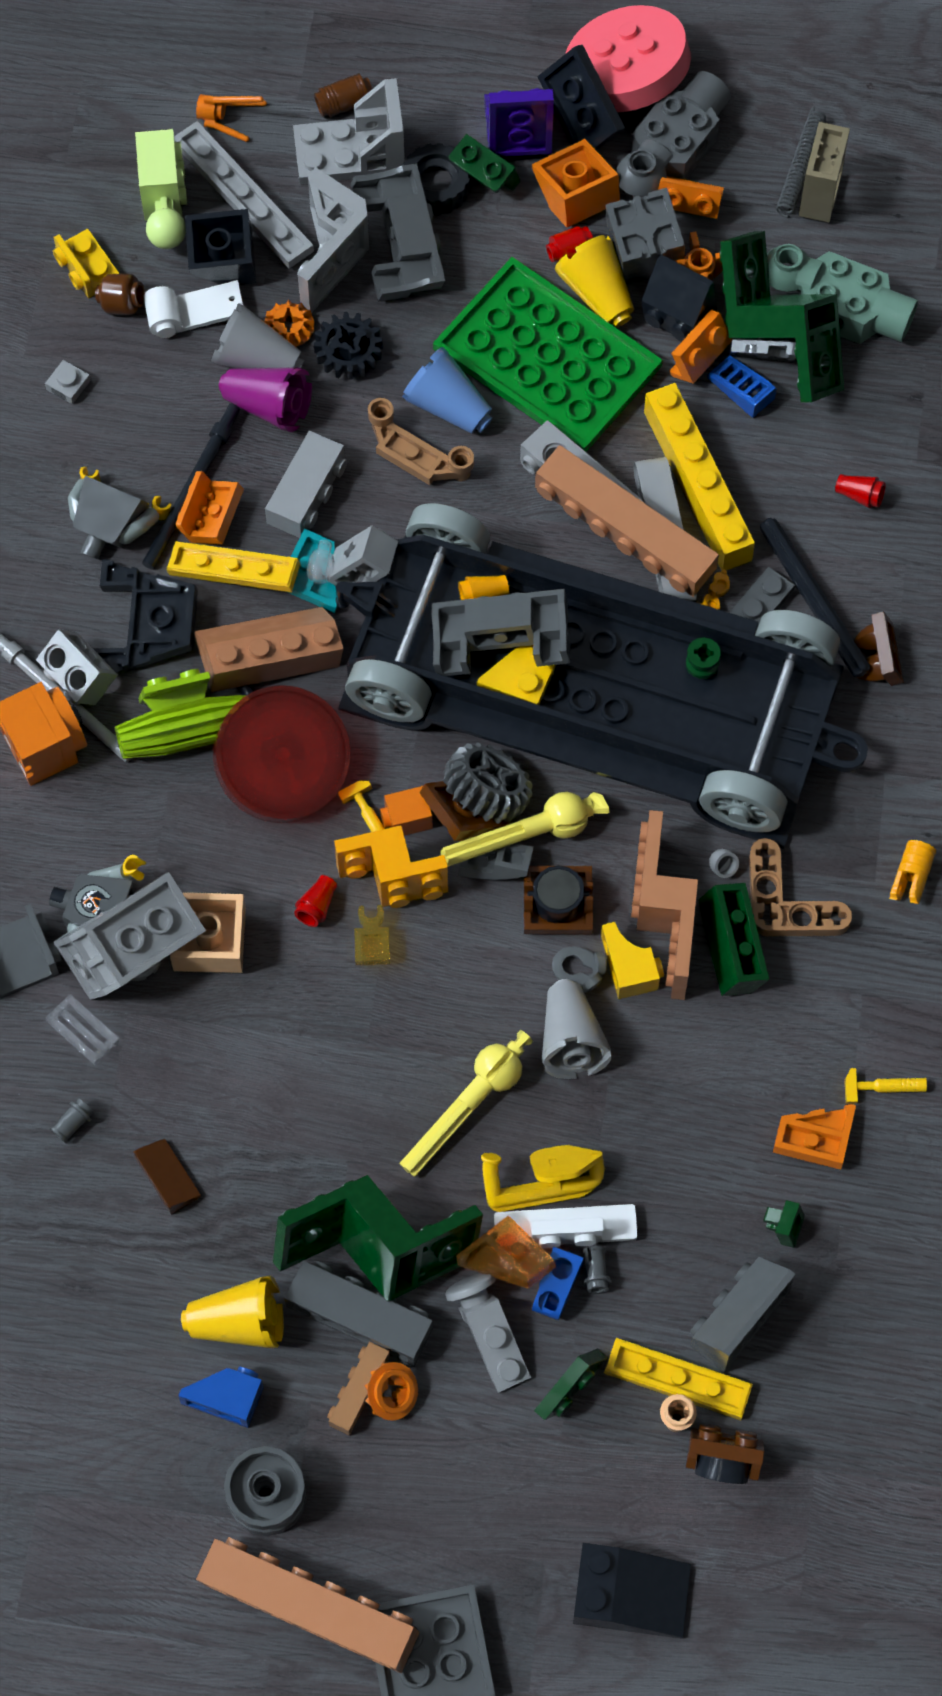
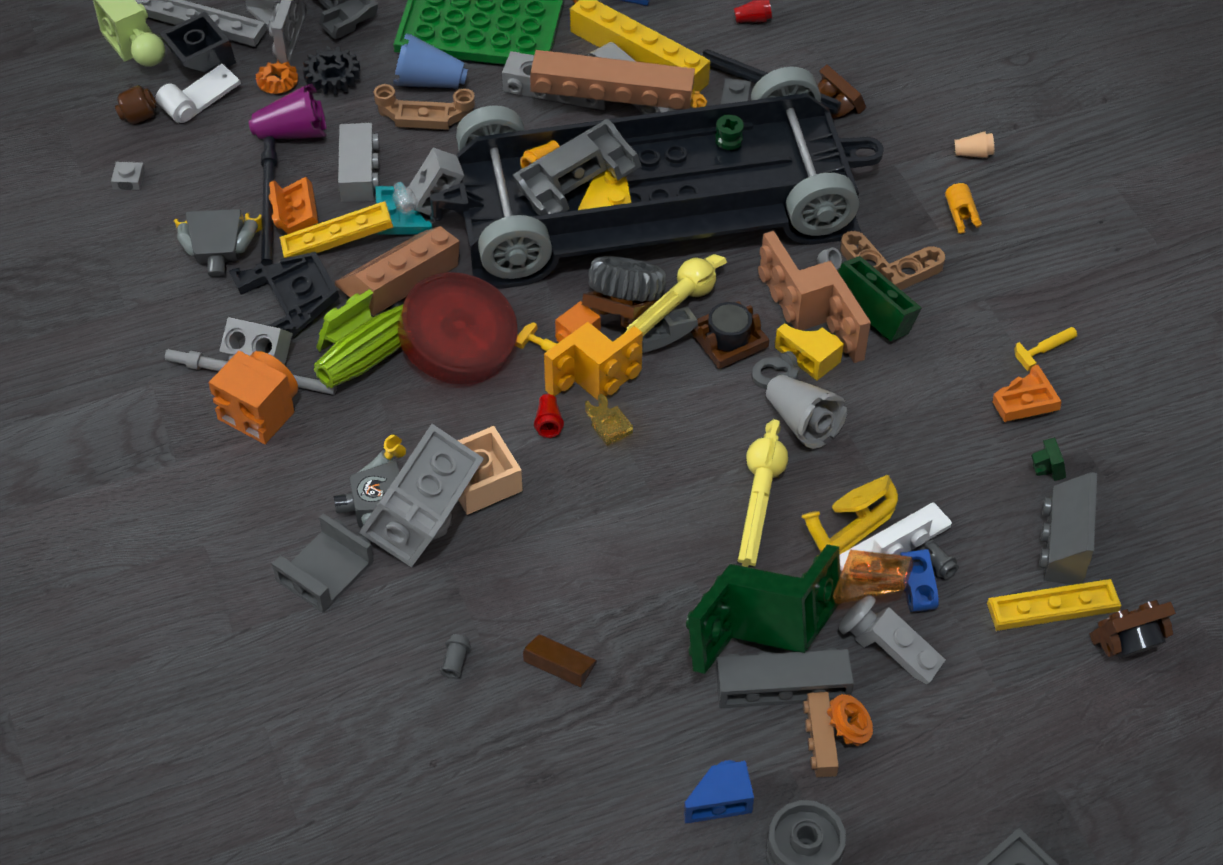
camera: 30 degrees left, 15 degrees down
(84, 261) = (92, 99): yellow bracket -> none
(102, 1048) = (418, 594): clear tile -> none
(238, 1315) = (690, 726): yellow cone -> none
(254, 344) = (257, 89): light grey cone -> none
(575, 1378) = (982, 659): dark green wing -> none
(631, 1591) = (1134, 770): black slope -> none
(679, 1405) = (1078, 621): light nougat cone -> none

